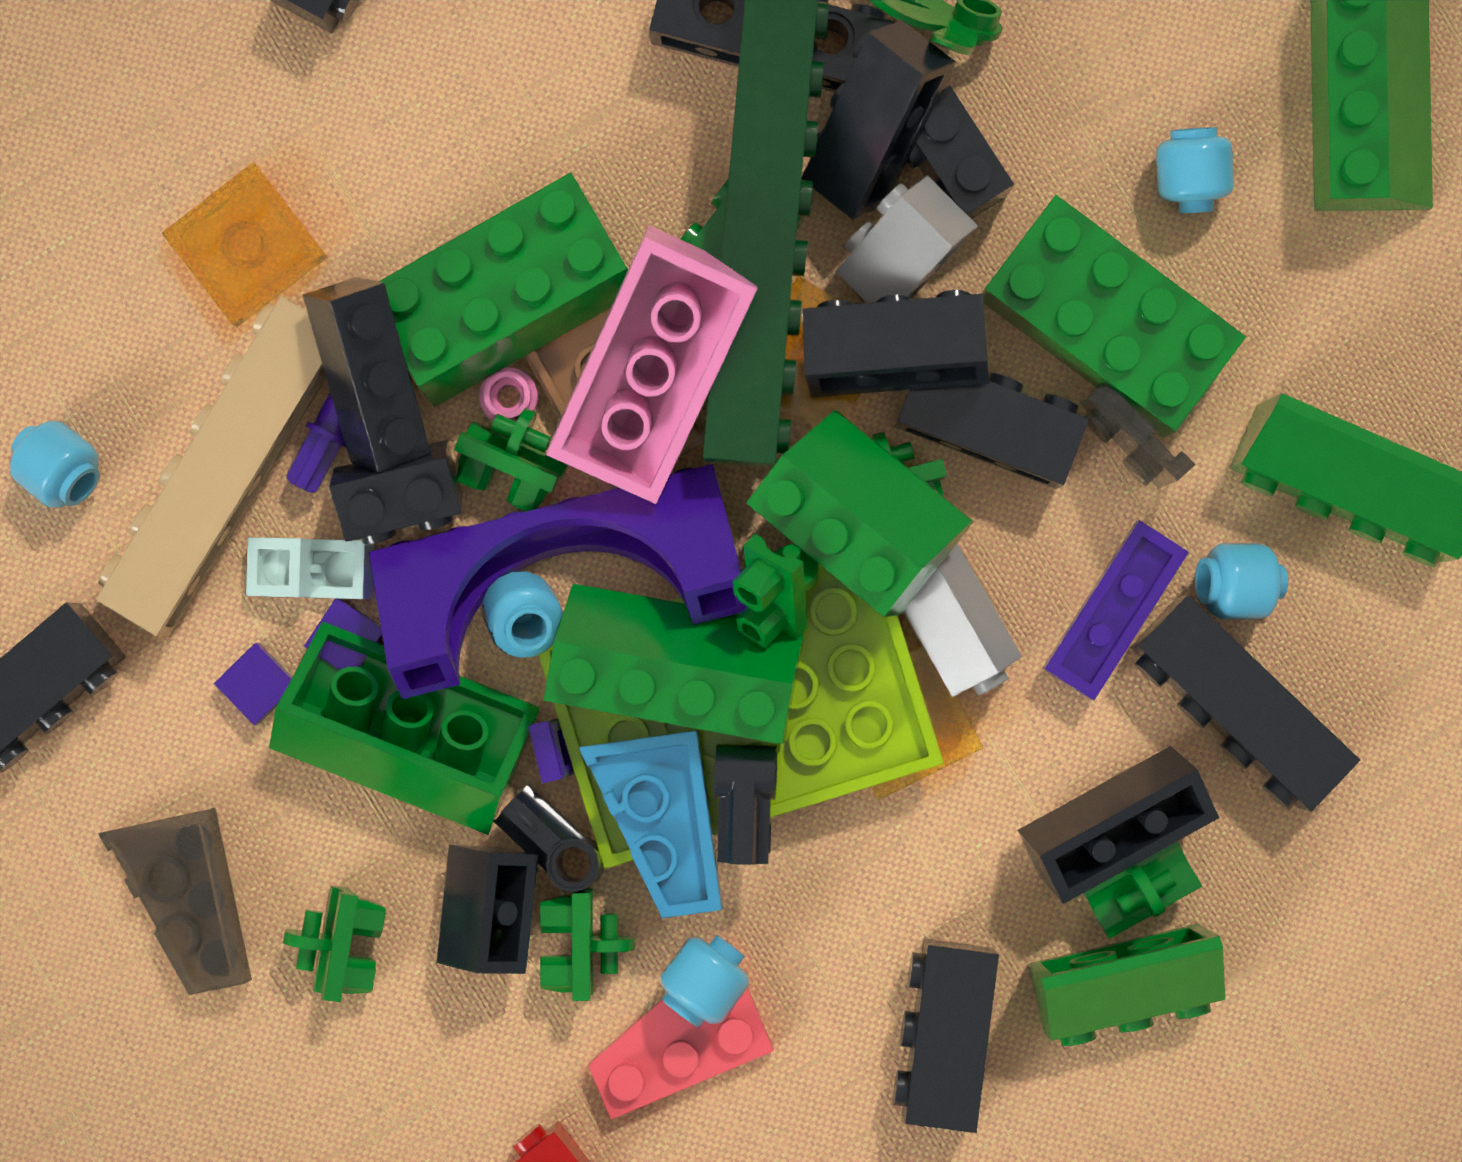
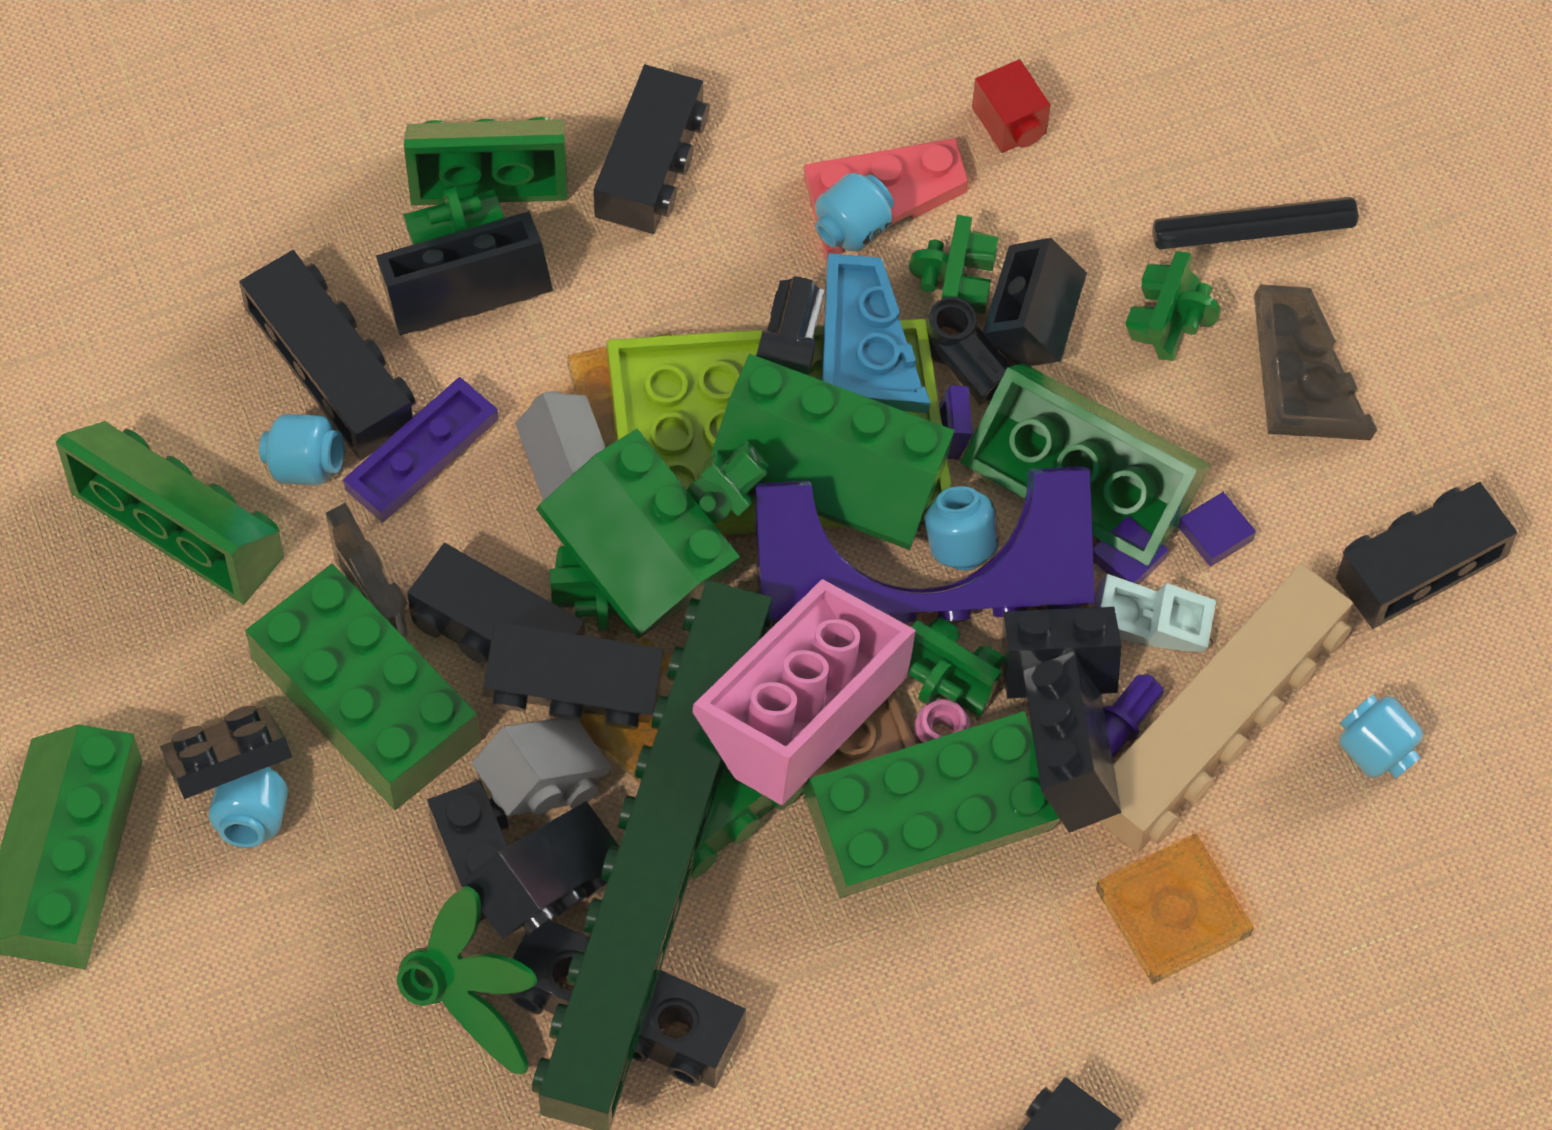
camera: 175 degrees left, 25 degrees down
(261, 1076) = (1255, 223): none -> black axle
(1232, 207) = (225, 751): none -> black plate

